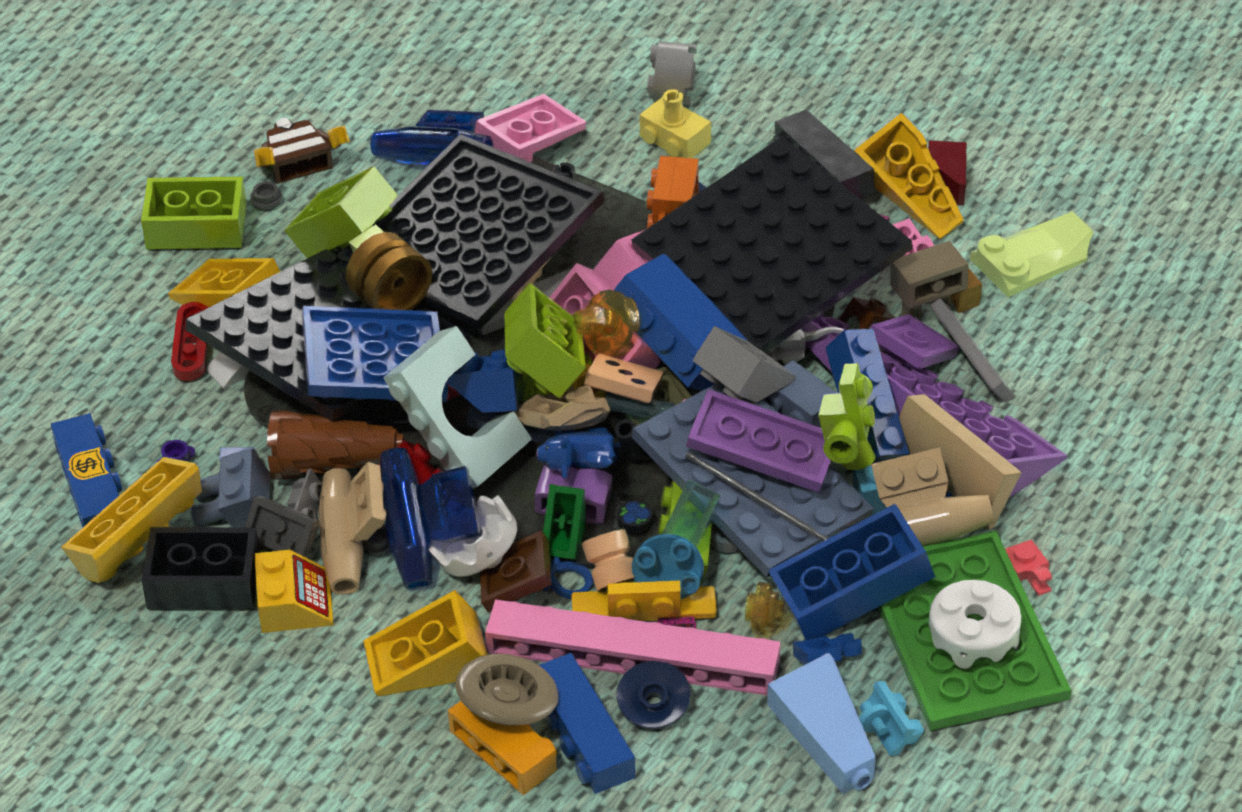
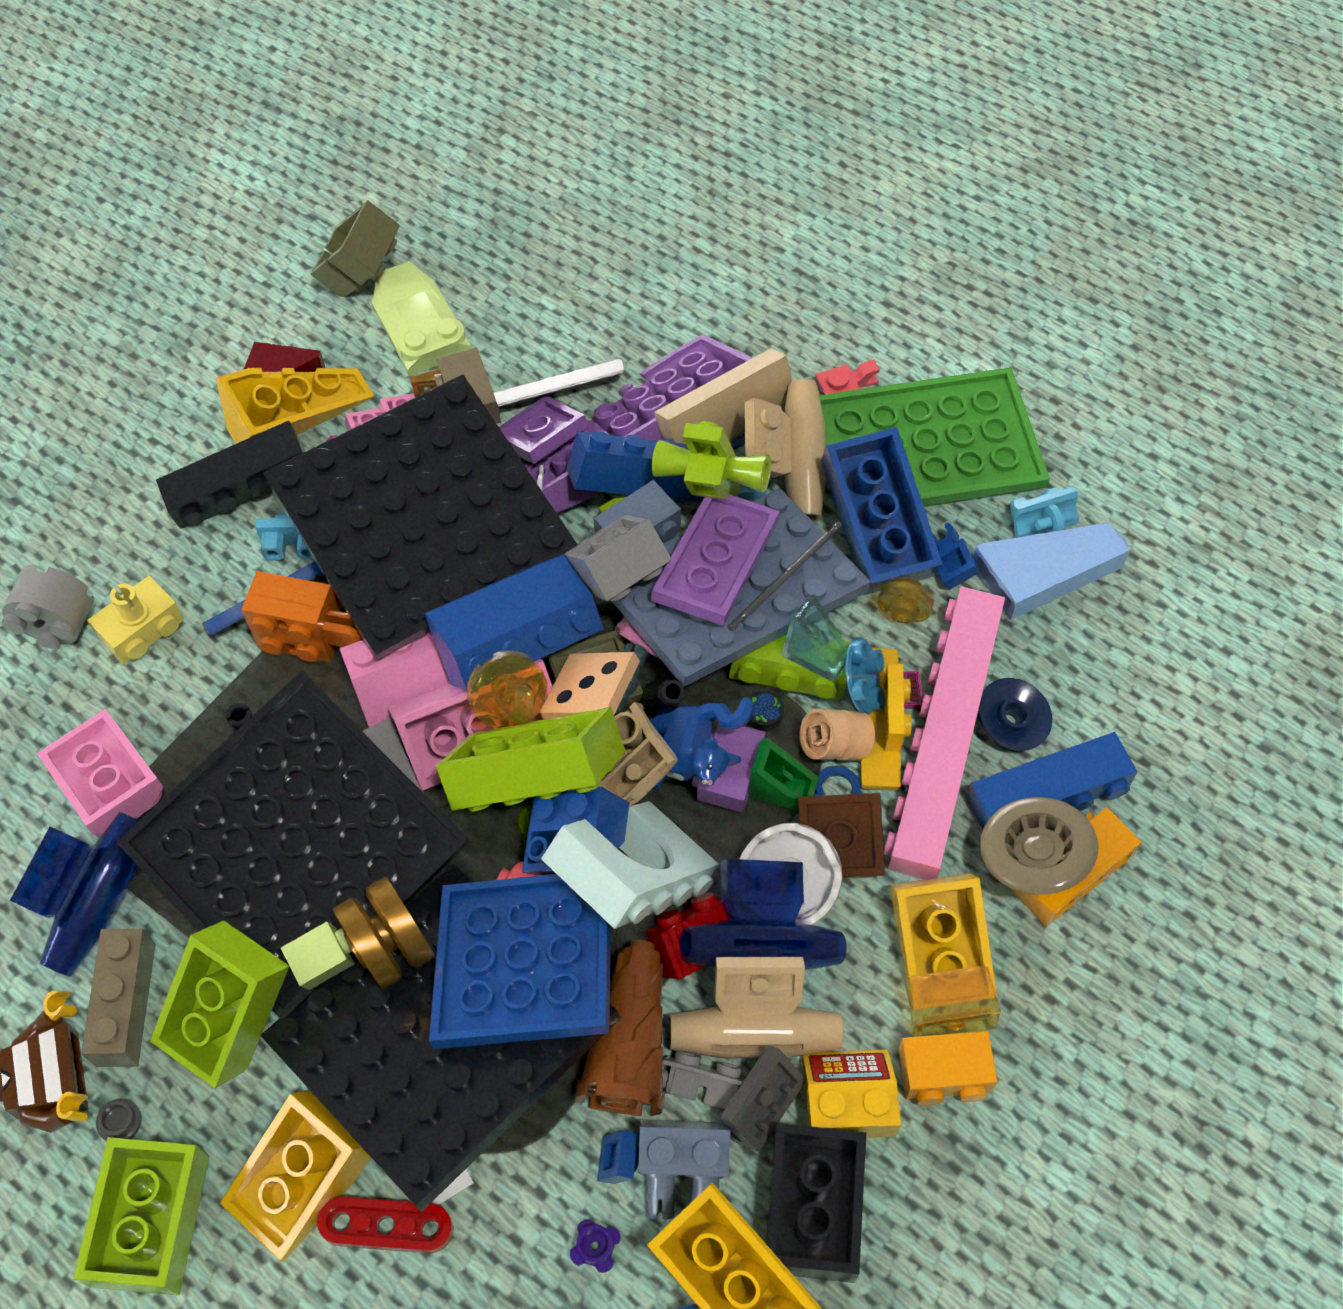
camera: 85 degrees left, 15 degrees up
(315, 653) = (947, 1067): none -> light orange brick
(329, 169) = (118, 998): none -> dark tan brick
(368, 651) = (952, 1002): none -> clear yellow panel
(966, 637) = (939, 437): white plate -> none
(1087, 187) = (356, 250): none -> olive piece

